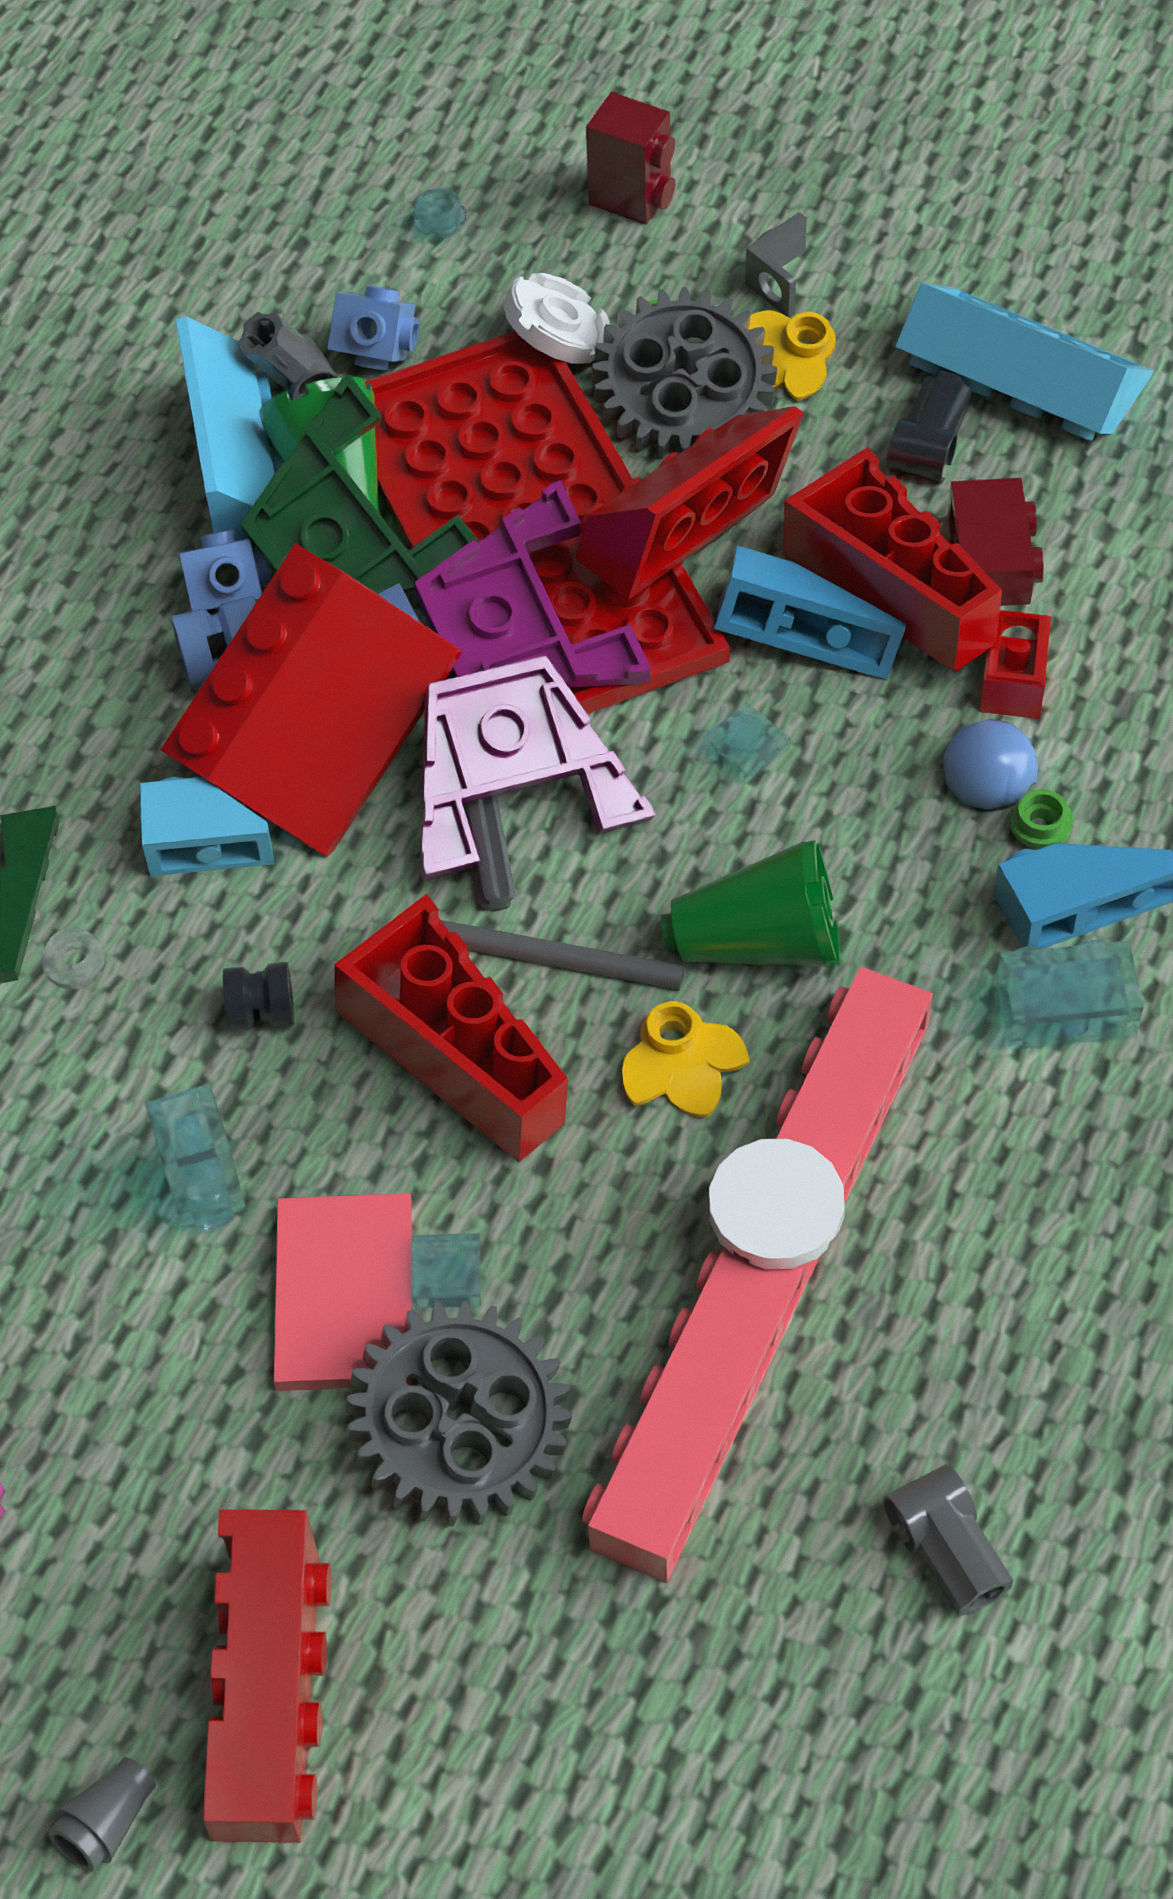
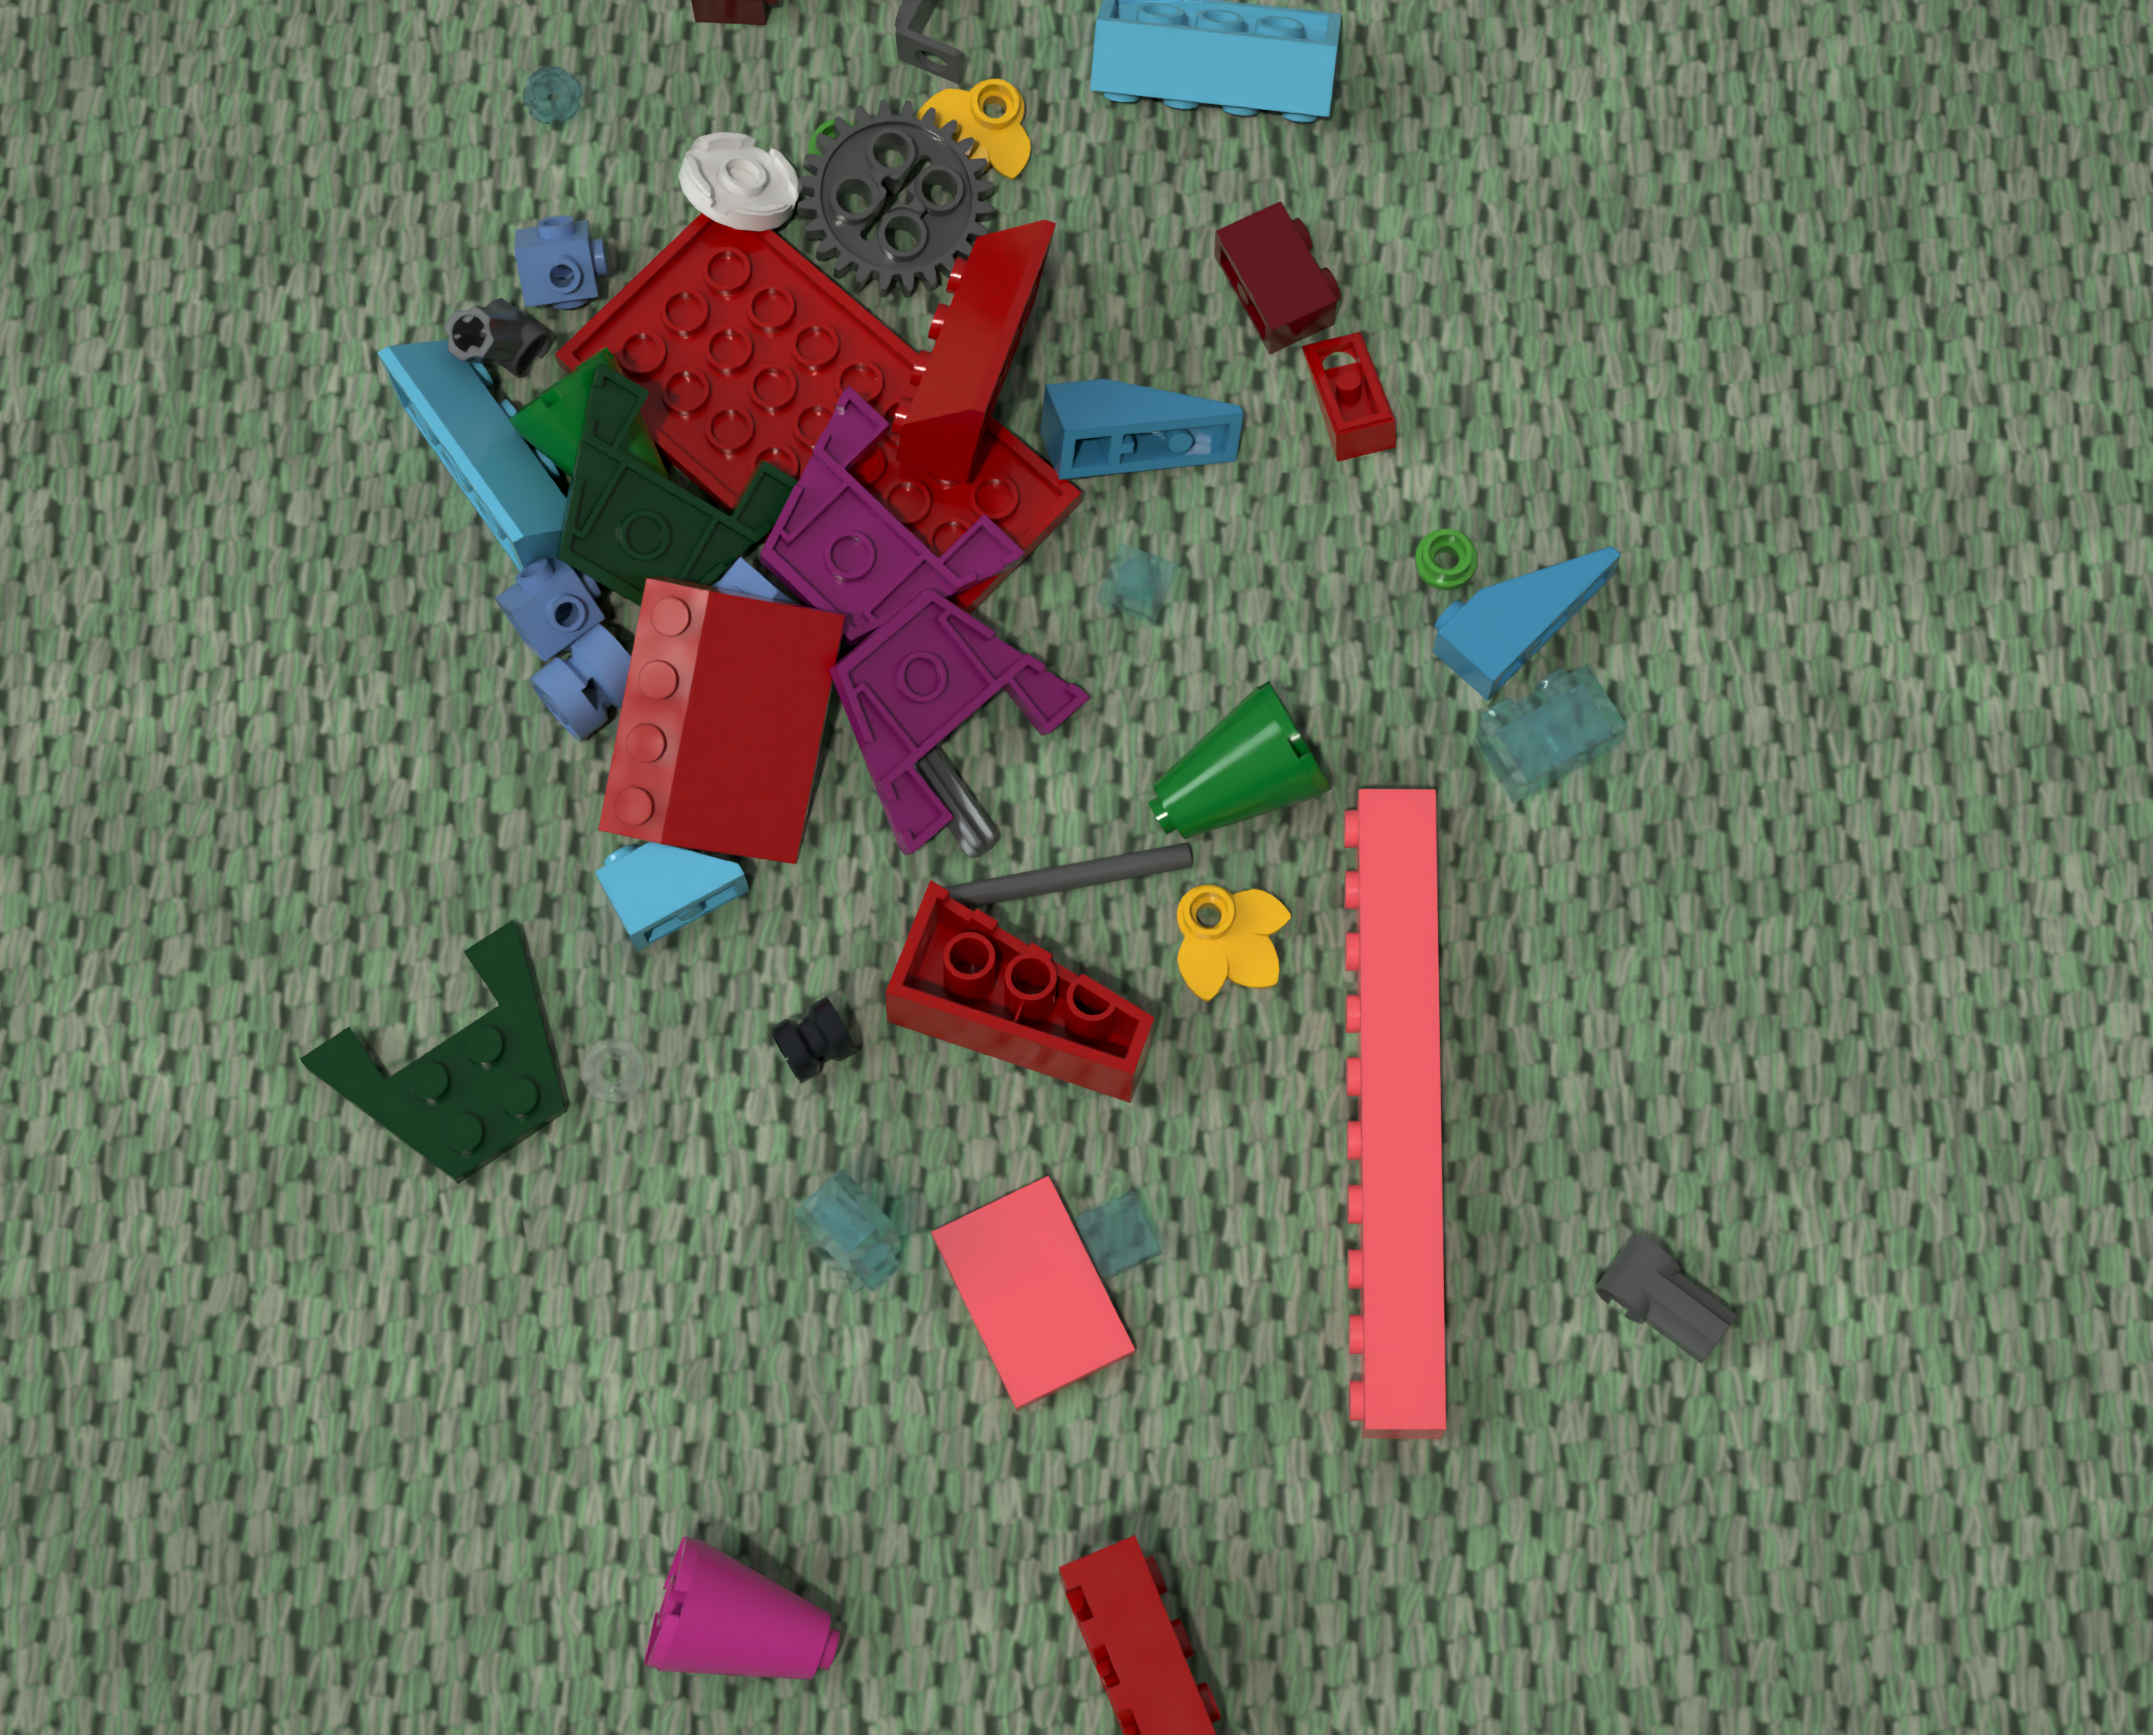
camera: 25 degrees left, 15 degrees up
(422, 1460) = (1190, 1427): dark grey gear -> none
(776, 1203) = (1393, 1059): white tile -> none
(877, 546) = (1194, 339): red wedge -> none
(929, 434) = (1162, 181): black piece -> none
(990, 764) = (1375, 520): medium blue hair -> none

